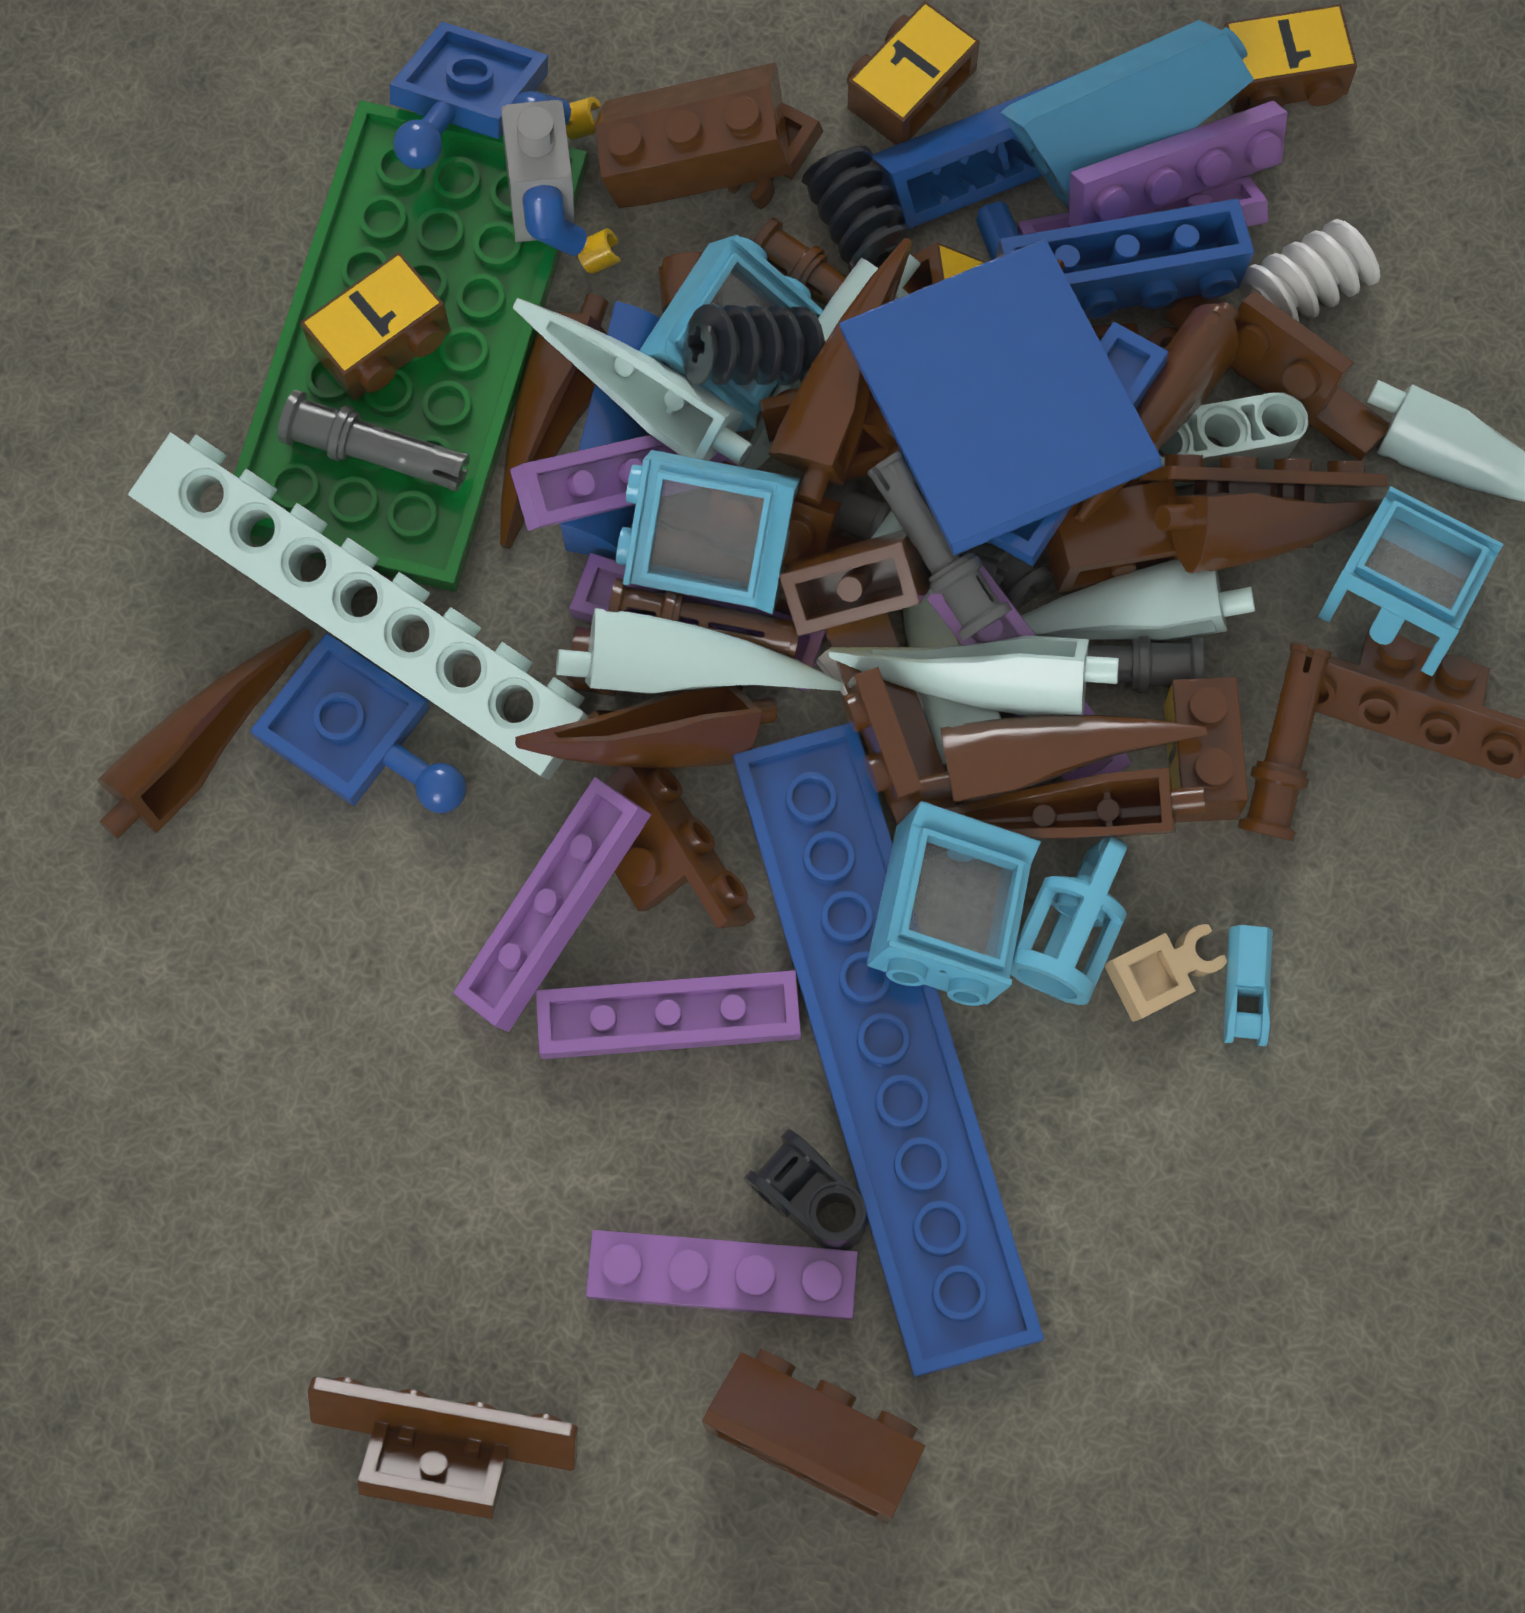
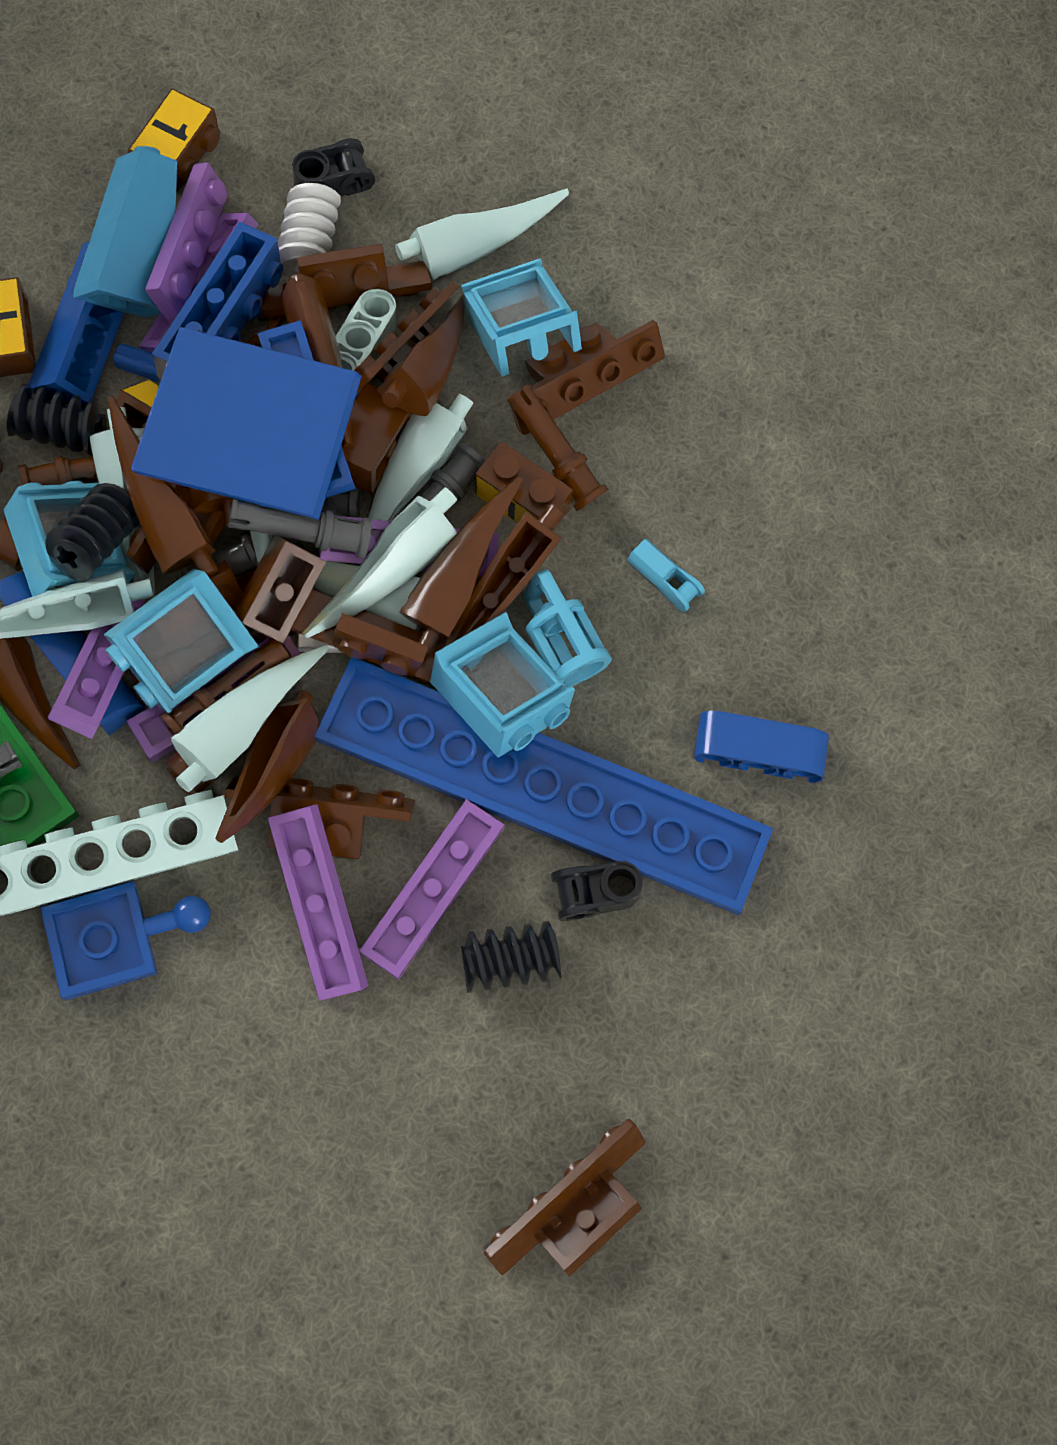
camera: 60 degrees left, 0 degrees up
(181, 751) = (35, 1052): reddish brown piece -> none
(655, 1155) = (510, 956): none -> black piece
(722, 1275) = (601, 975): medium lavender plate -> none
(815, 1434) = (734, 989): reddish brown slope -> none
(1136, 1252) = (761, 744): none -> blue beam
(1157, 972) = (620, 613): tan plate -> none
(1409, 243) = (334, 167): none -> black piece

